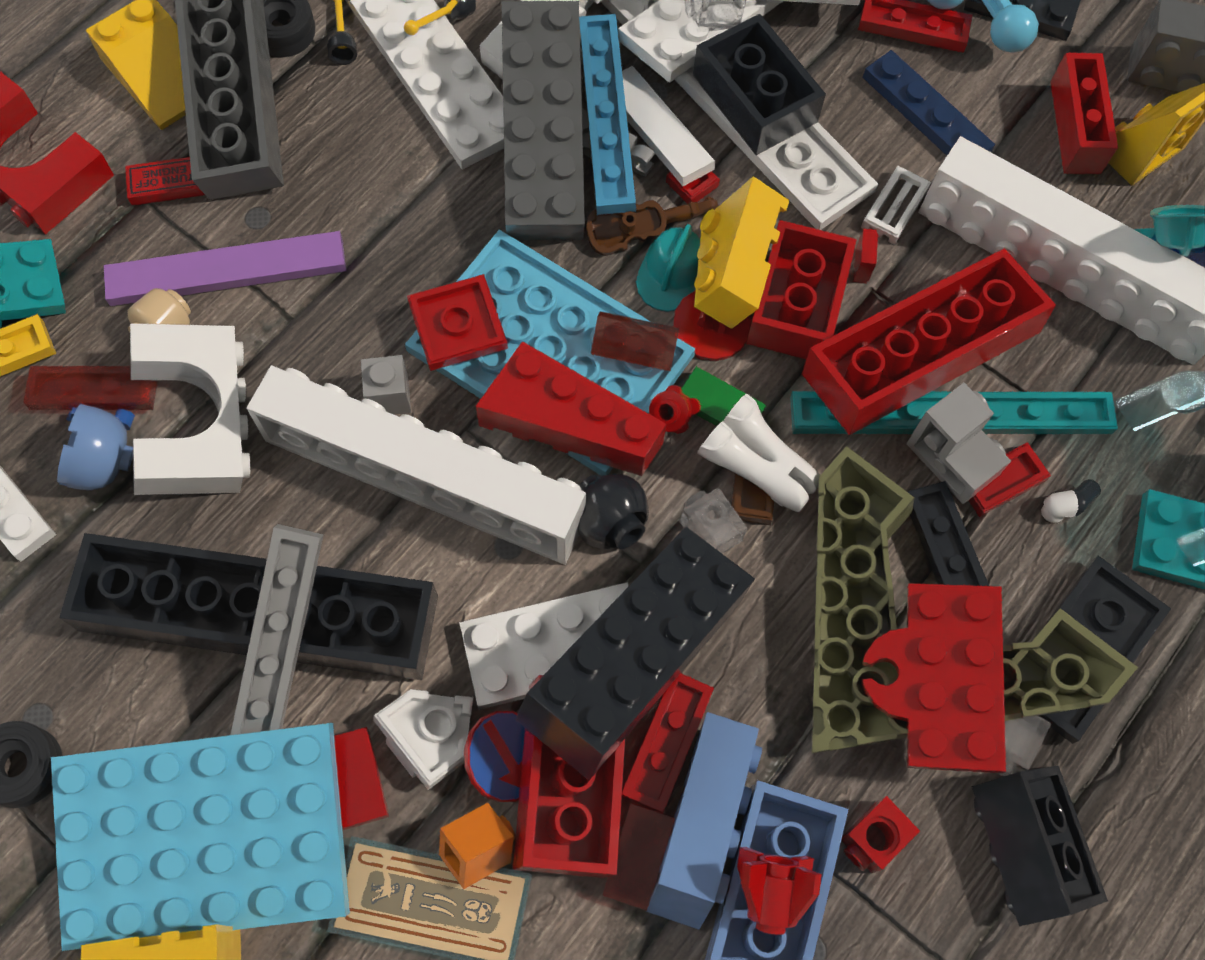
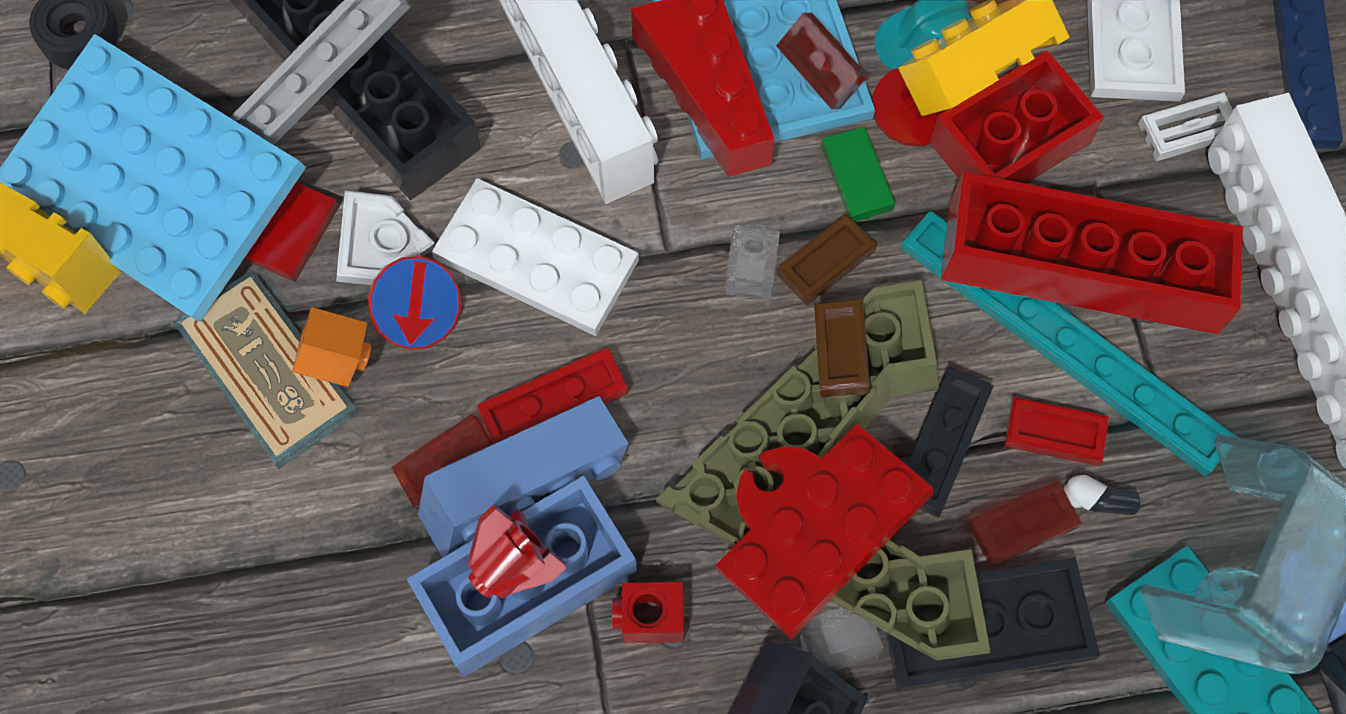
camera: 45 degrees right, 0 degrees up
(563, 817) = (446, 355): red brick -> none
(613, 511) = (677, 186): black plant -> none
(633, 652) = (581, 294): black brick -> none
(682, 405) = (806, 145): red brick -> none
(756, 453) = (854, 202): white piece -> none
(841, 537) = (841, 348): none -> reddish brown tile
(865, 256) = (1110, 146): red tile -> none
(956, 447) = (1026, 354): light grey brick -> none
(1045, 559) = (1024, 523): none -> clear red plate

